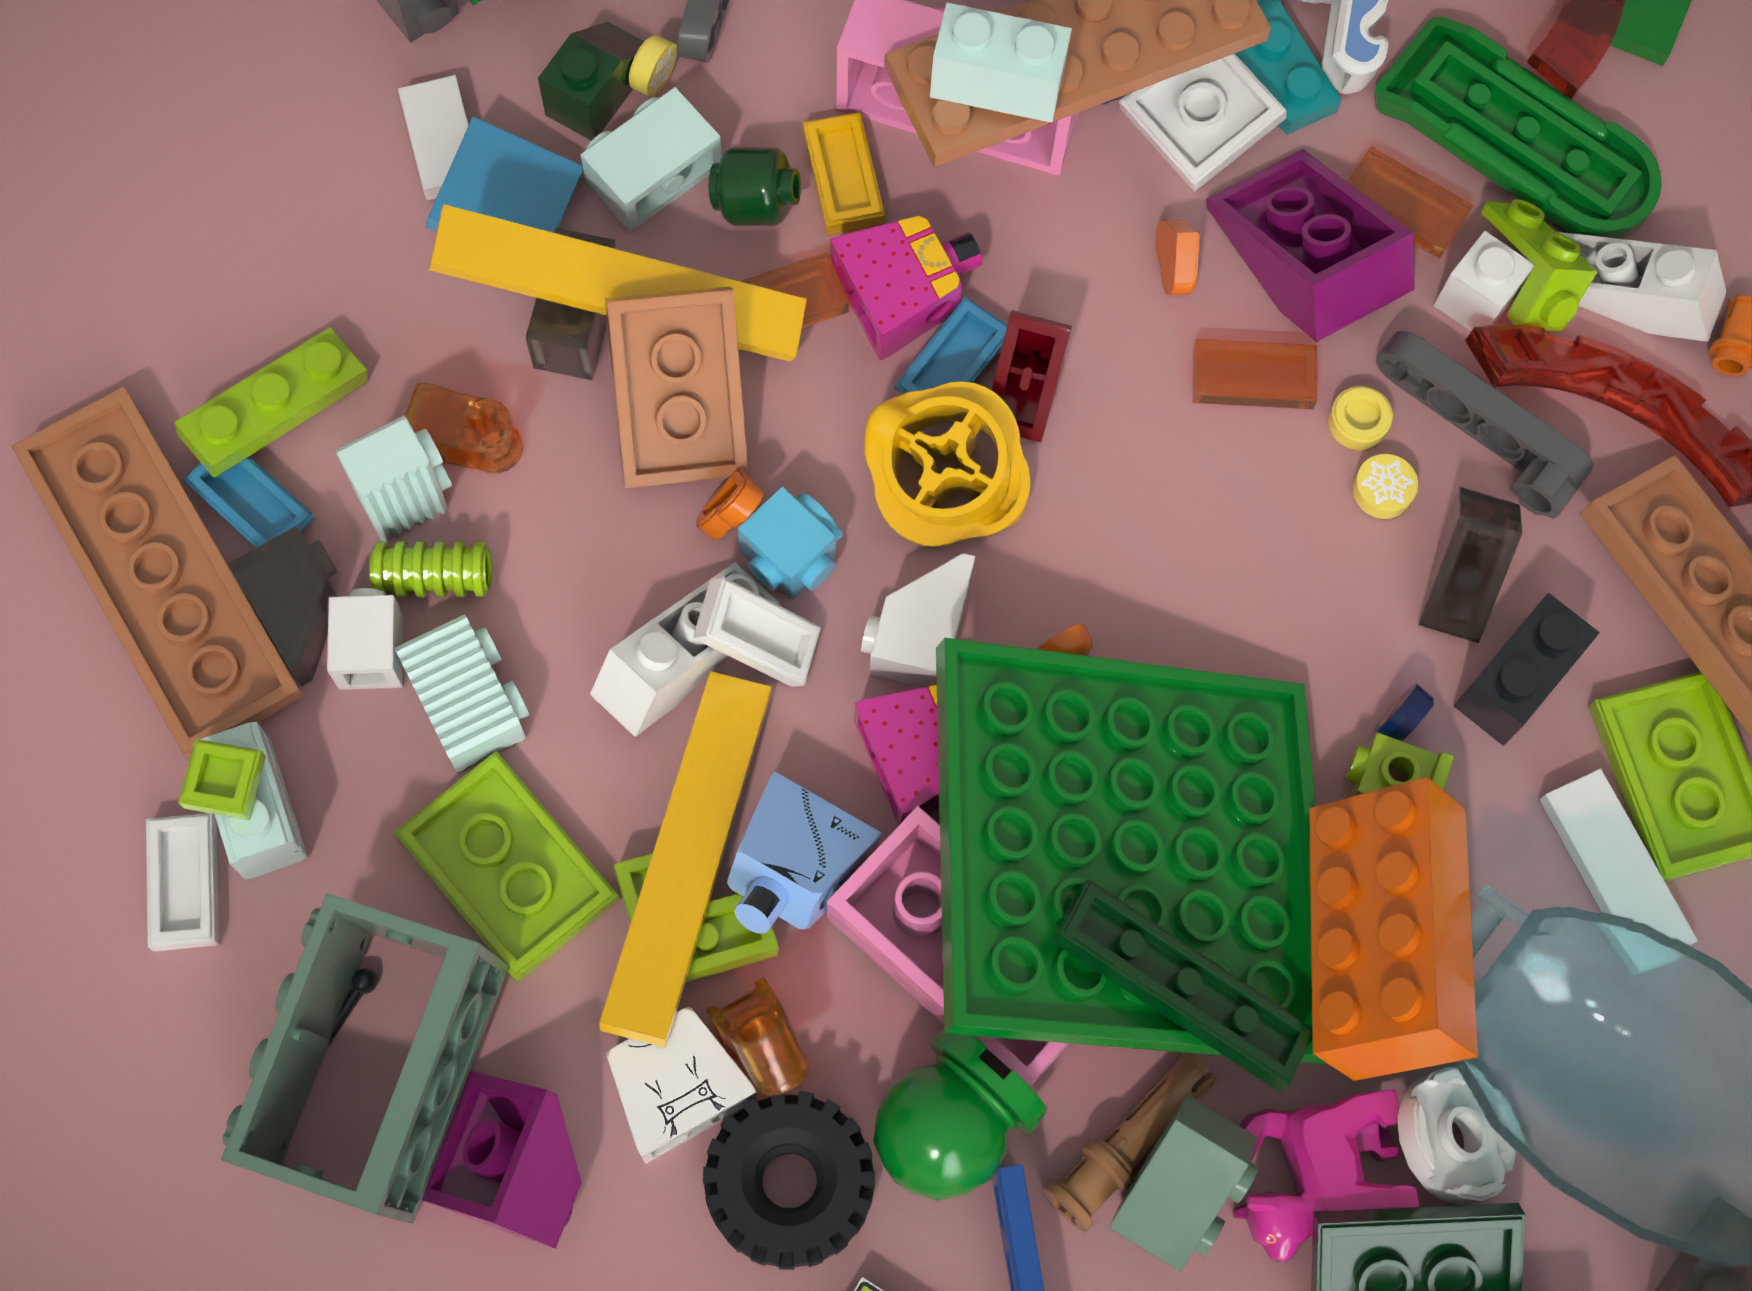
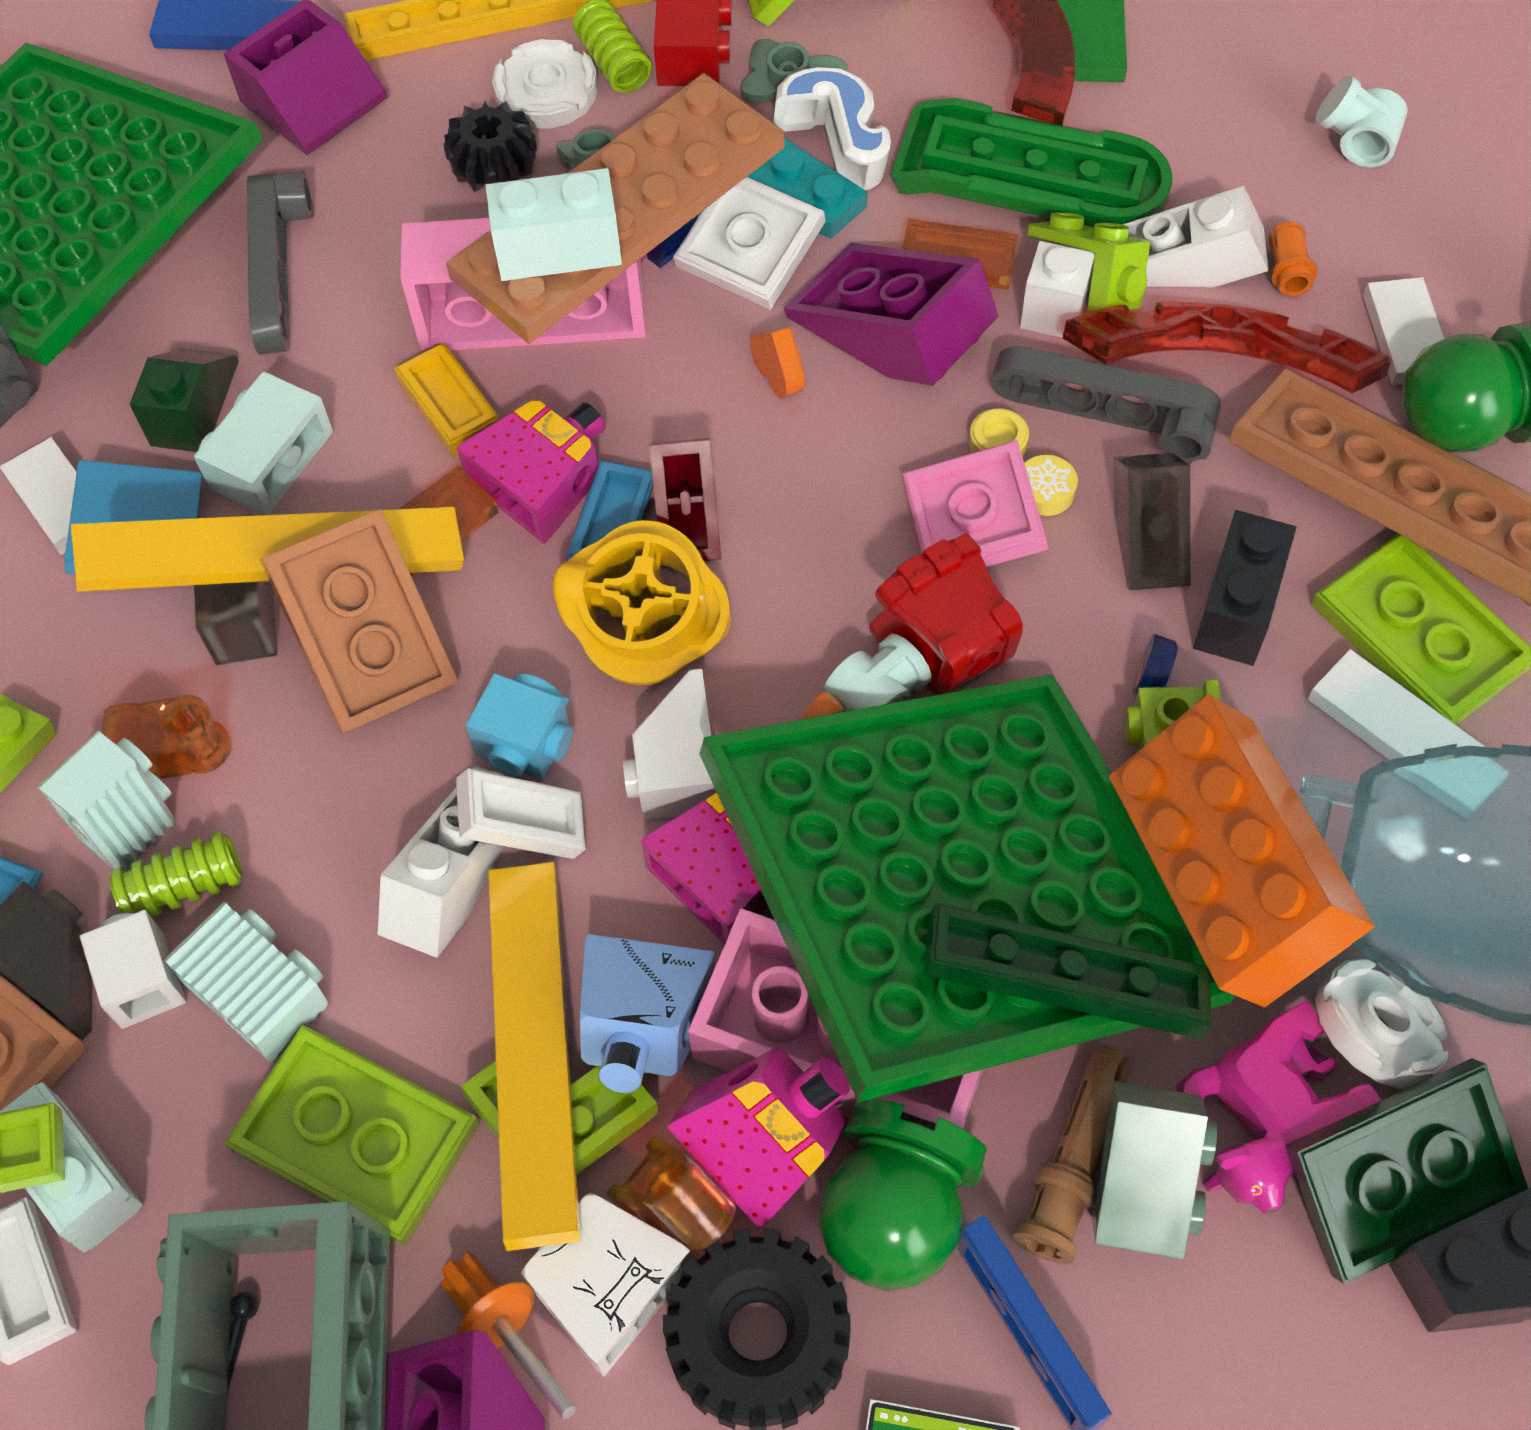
camera: 15 degrees left, 10 degrees down
(573, 1080) = (501, 1314): none -> orange piece
(652, 65) = (235, 365): light yellow tile -> none
(730, 505) = (450, 713): orange tile -> none
(754, 186) = (368, 433): dark green head -> none
(859, 1012) = (763, 1128): none -> dark pink torso
(1136, 630) = (879, 679): none -> light aqua piece
(1226, 591) = (949, 613): none -> red piece
(1254, 374) = (889, 435): clear orange tile -> none
(1302, 488) = (979, 496): none -> bright pink tile

